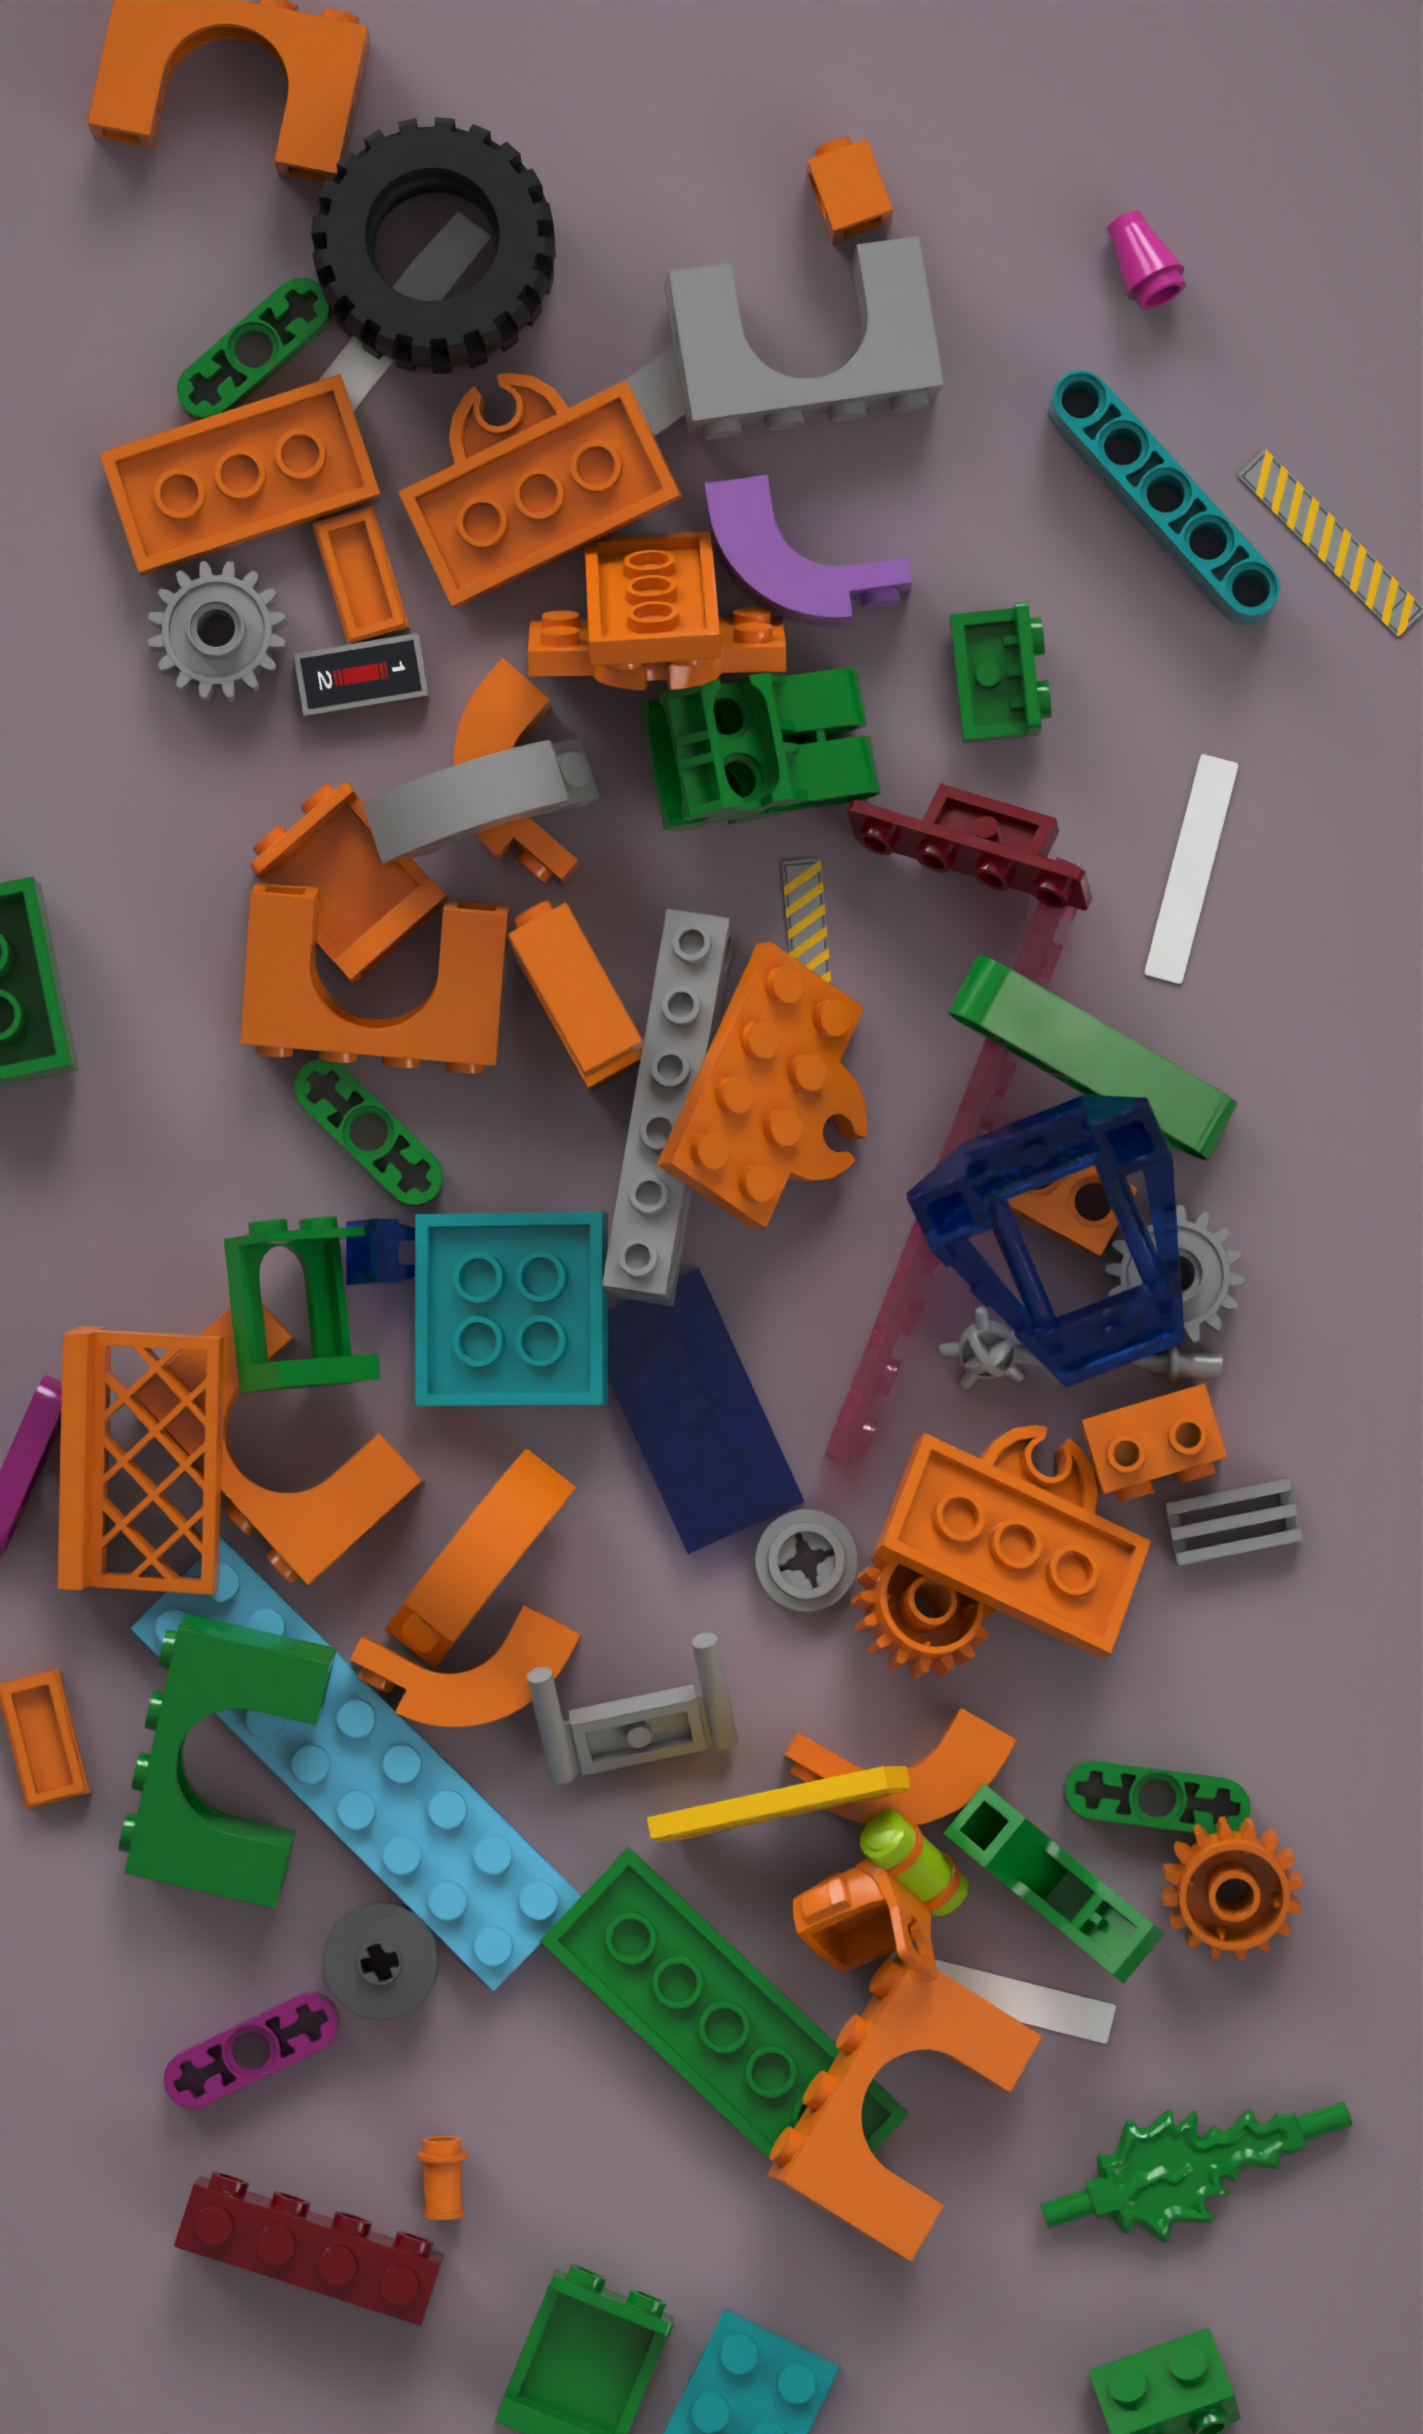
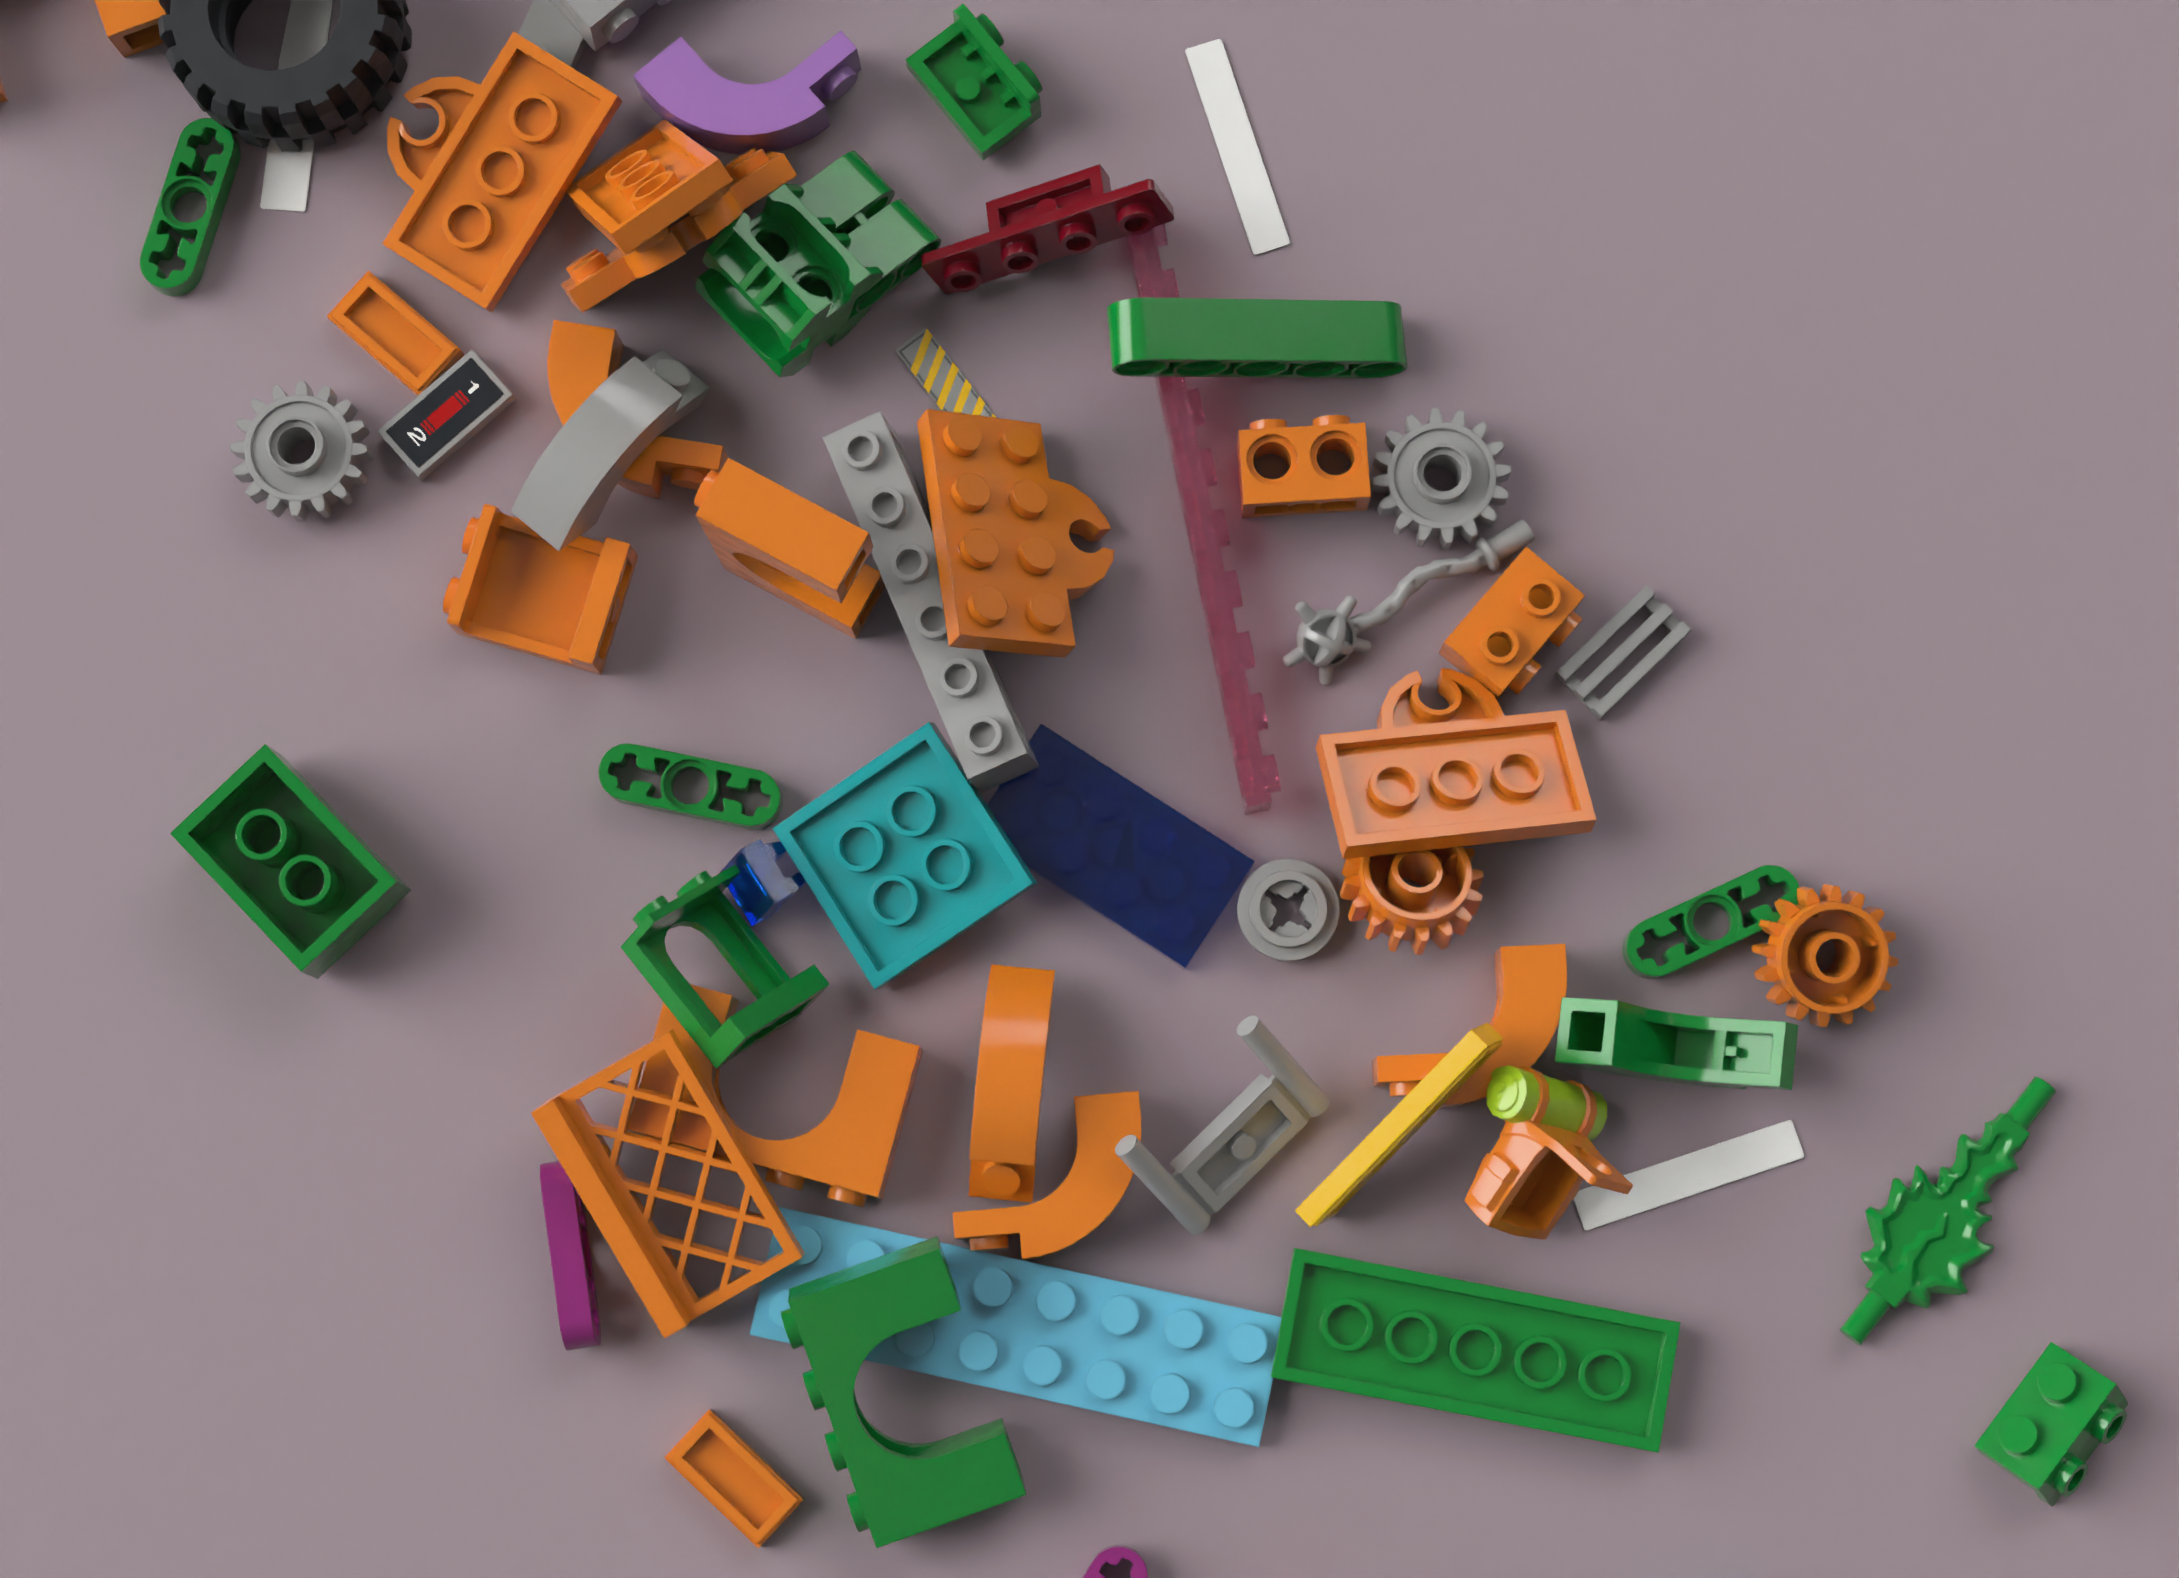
camera: 25 degrees left, 5 degrees down
(240, 475) = (241, 313): orange plate -> none
(292, 1010) = (558, 722): orange arch -> none
(365, 1990) = (1148, 1517): dark grey piece -> none
(827, 2150) = (1634, 1397): orange arch -> none
(971, 1196) = (1319, 385): clear blue windscreen -> none

